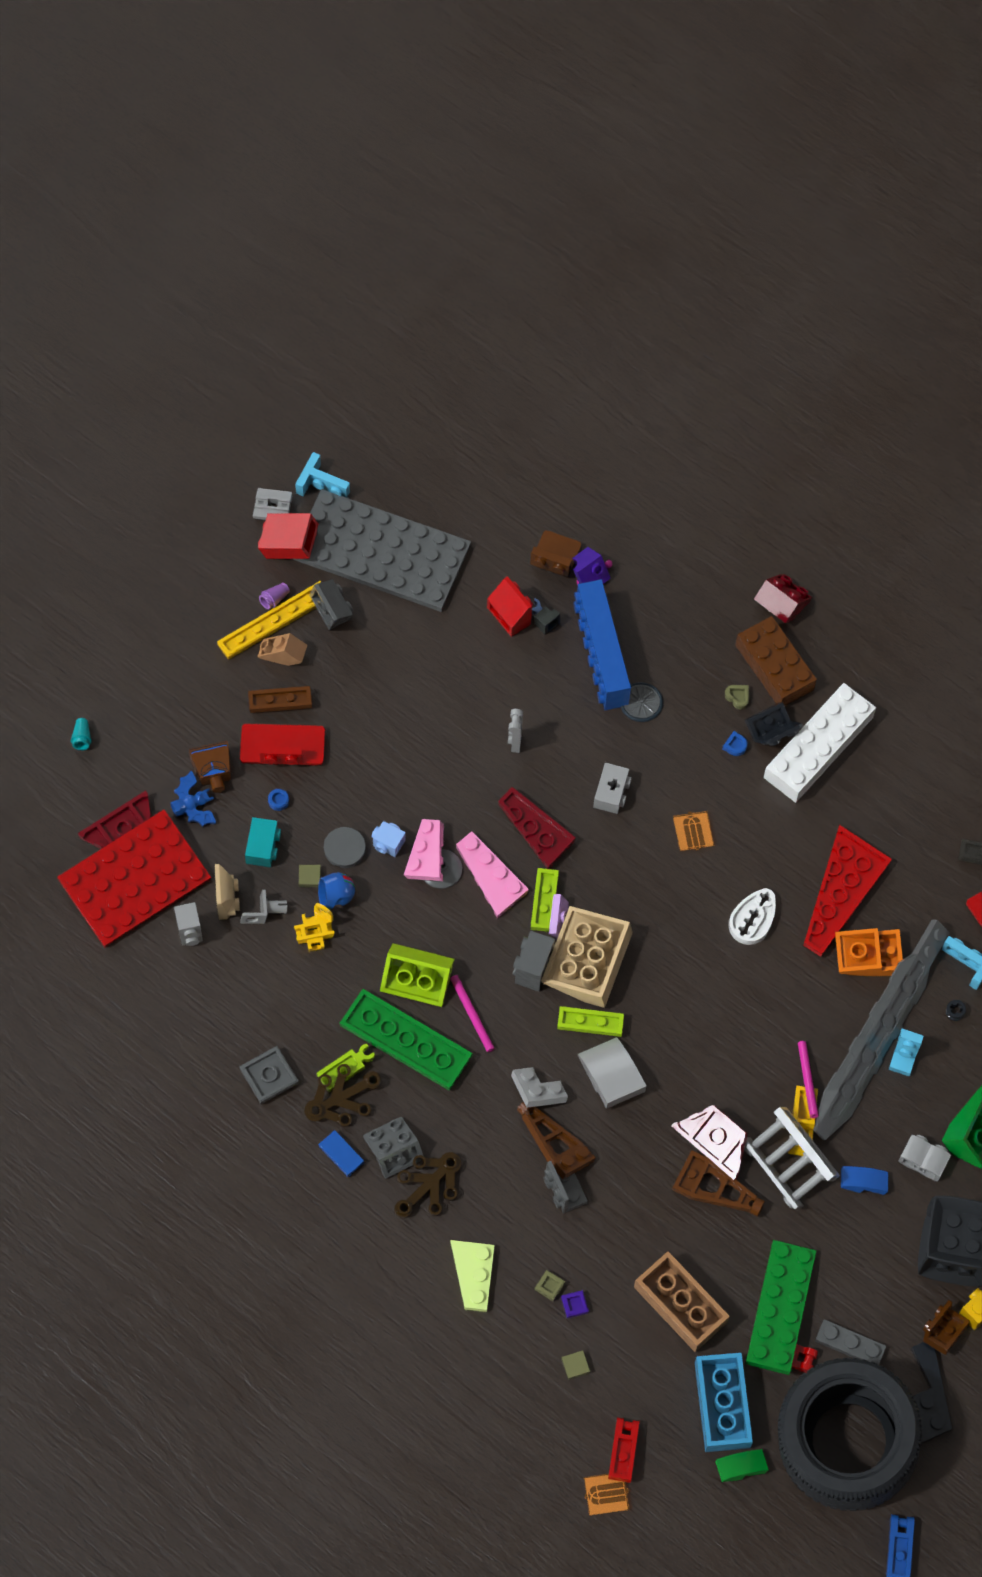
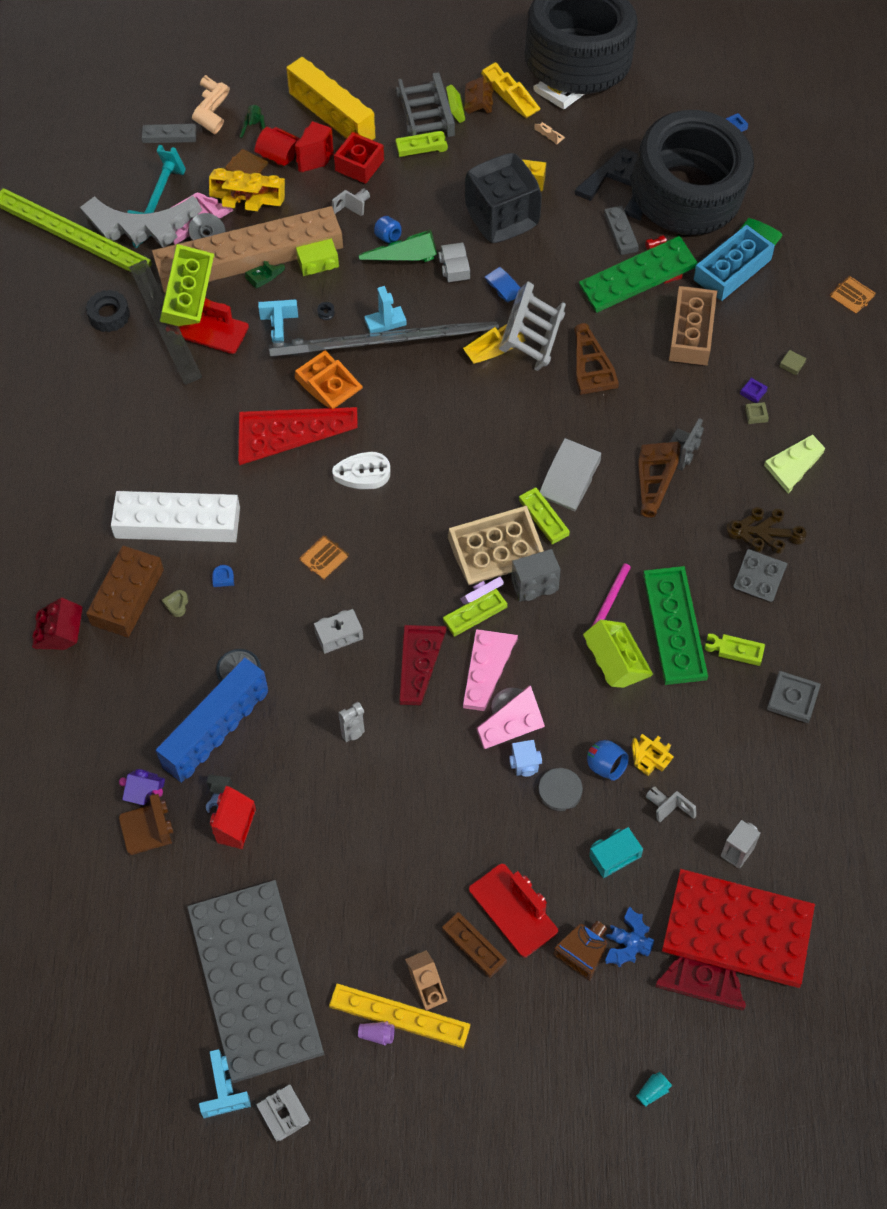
camera: 125 degrees left, 5 degrees down
(225, 893) = (688, 839): tan slope -> none
(278, 799) = (564, 874): blue tile -> none
(288, 536) = (310, 1064): brick -> none
(309, 875) = (608, 796): olive tile -> none
(331, 604) = (349, 967): dark grey slope -> none
(339, 1097) = (782, 641): dark brown plant -> none
(341, 1153) = (799, 605): blue tile -> none
(537, 1093) = (633, 508): light grey plate -> none
(623, 1451) = (818, 298): red plate -> none
(716, 1138) = (558, 381): wing -> none
(772, 725) = (190, 550): black bracket -> none
(808, 1082) = (463, 355): dark pink piece -> none
(944, 1328) = (563, 183): reddish brown bracket -> none

